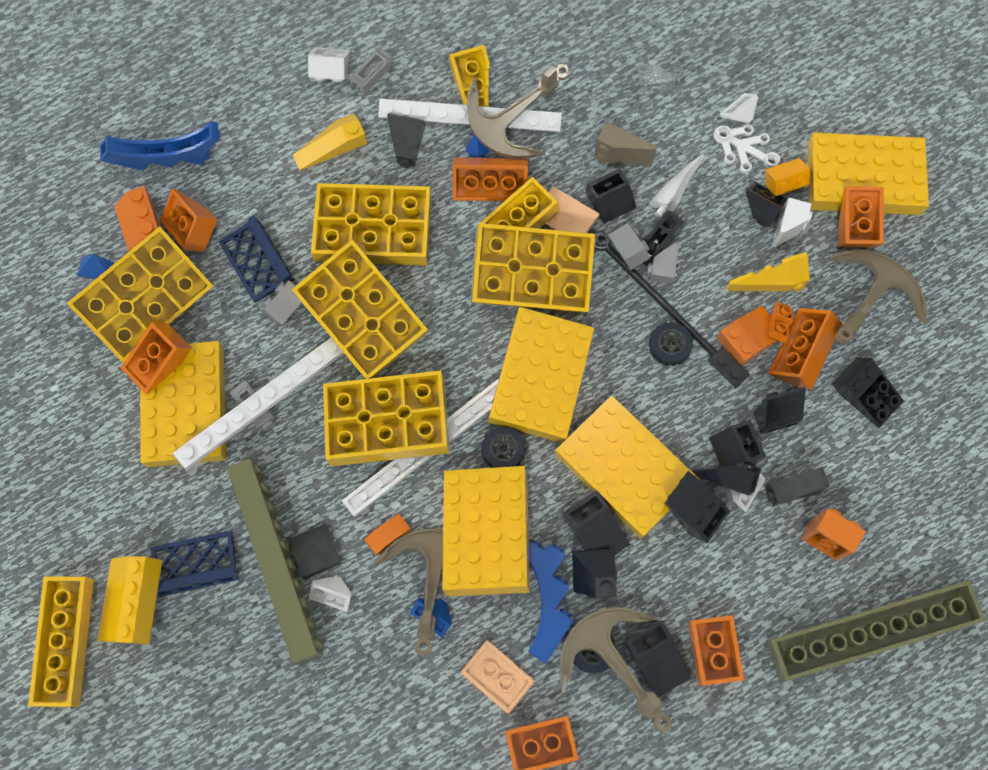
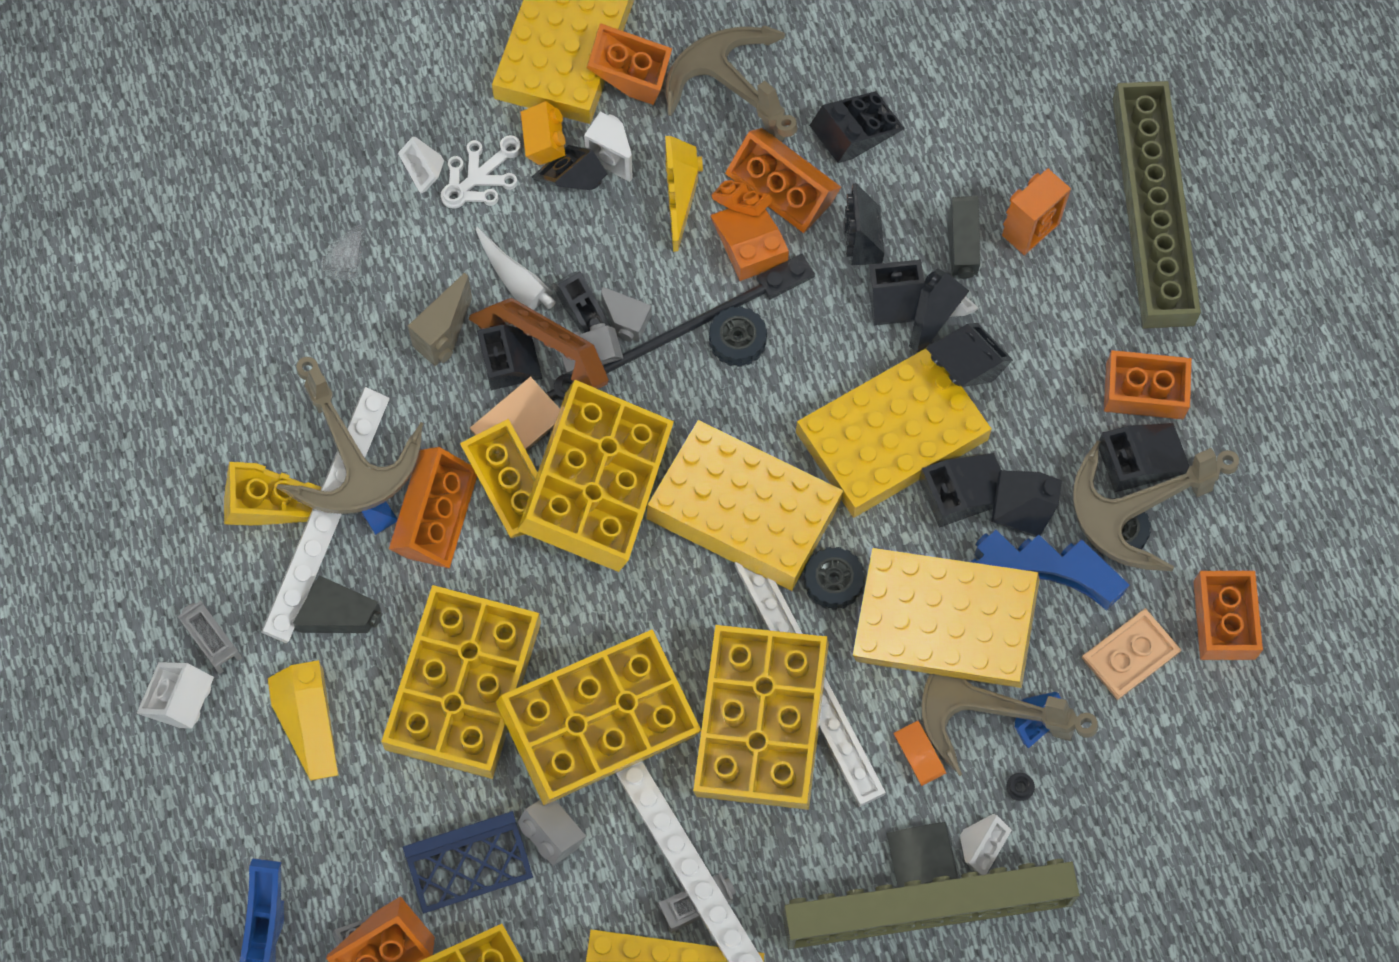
camera: 80 degrees left, 5 degrees down
(373, 607) = (1020, 778): none -> black plate
(610, 243) = (587, 365): none -> dark orange slope

